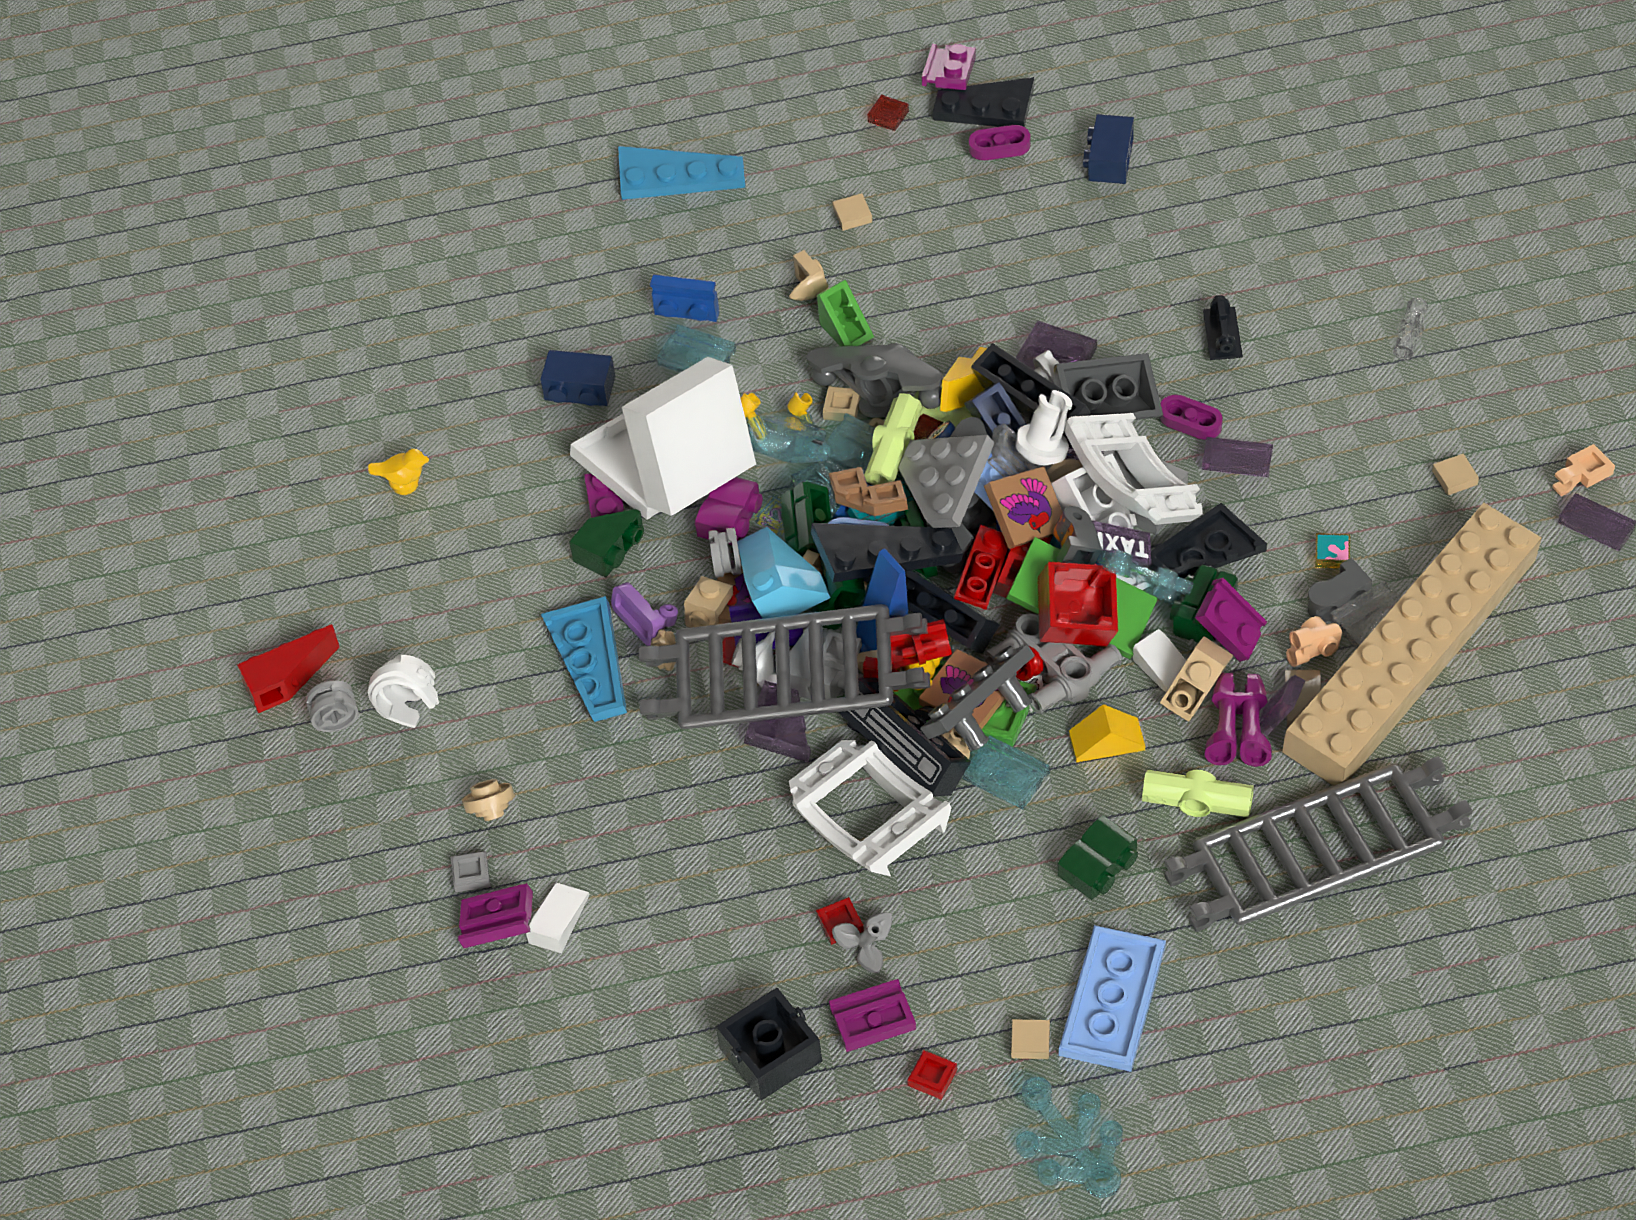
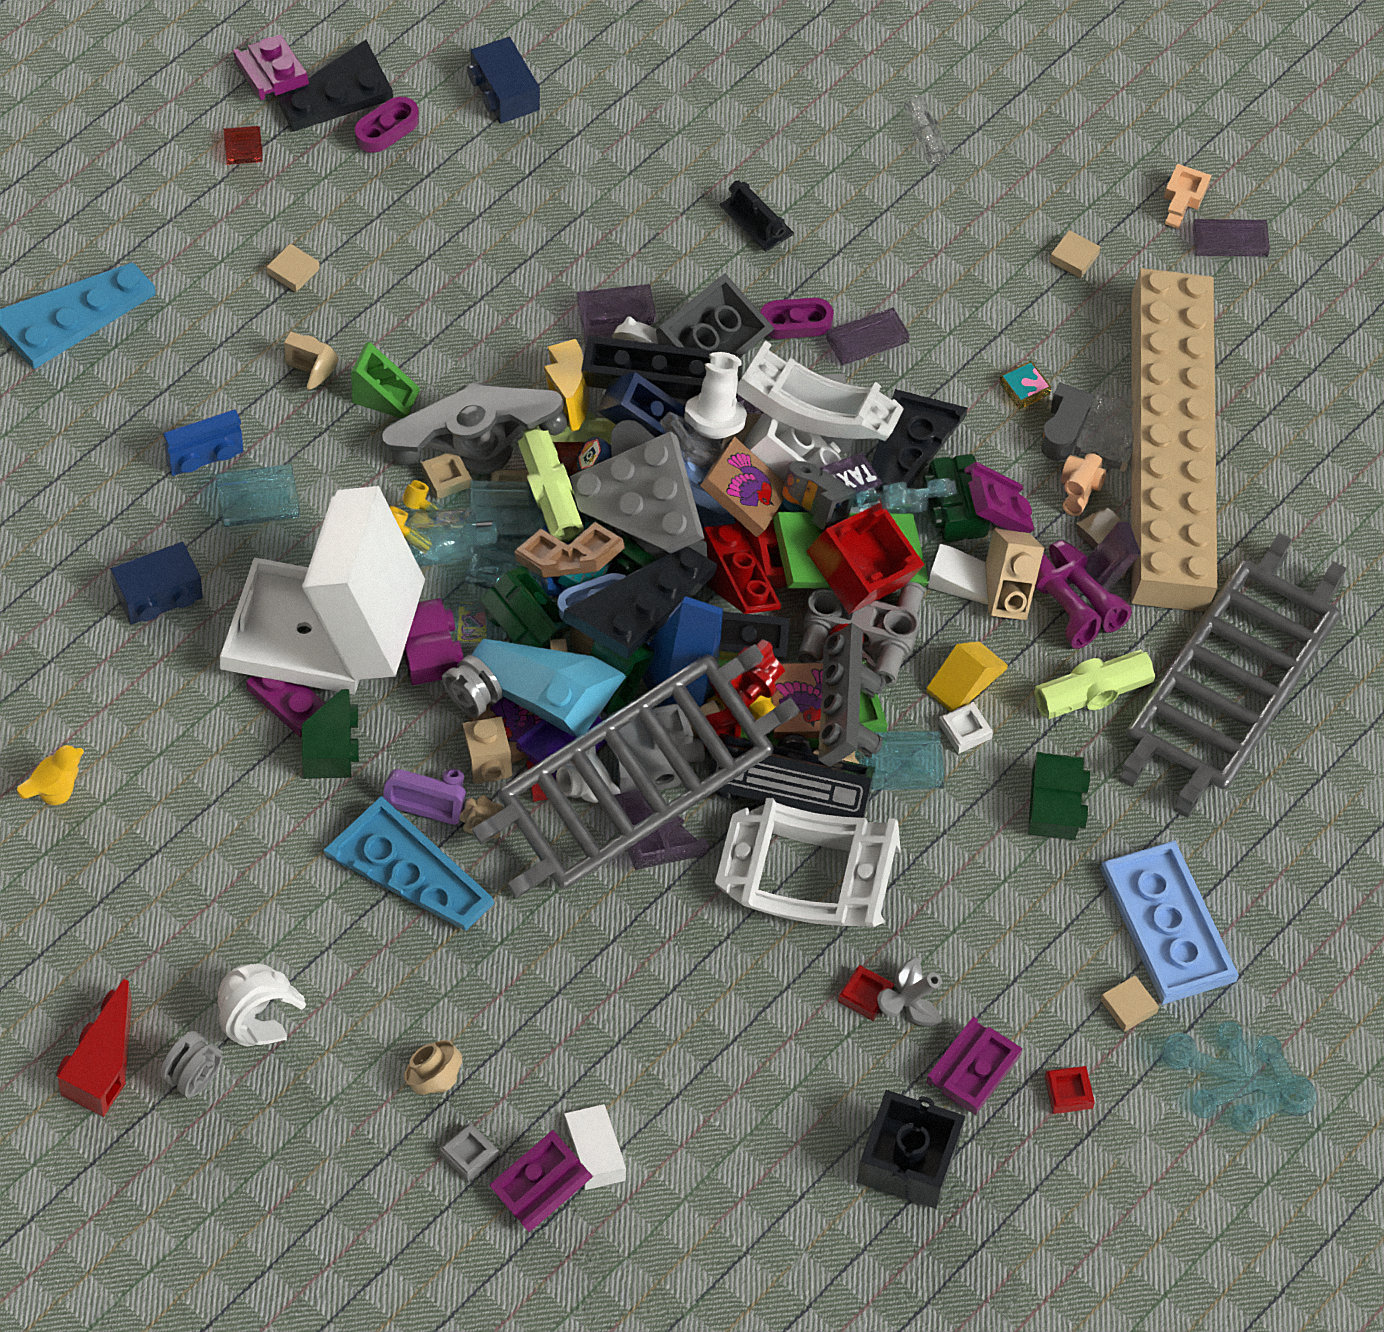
camera: 45 degrees left, 5 degrees up
(1074, 774) = (965, 727): none -> white tile

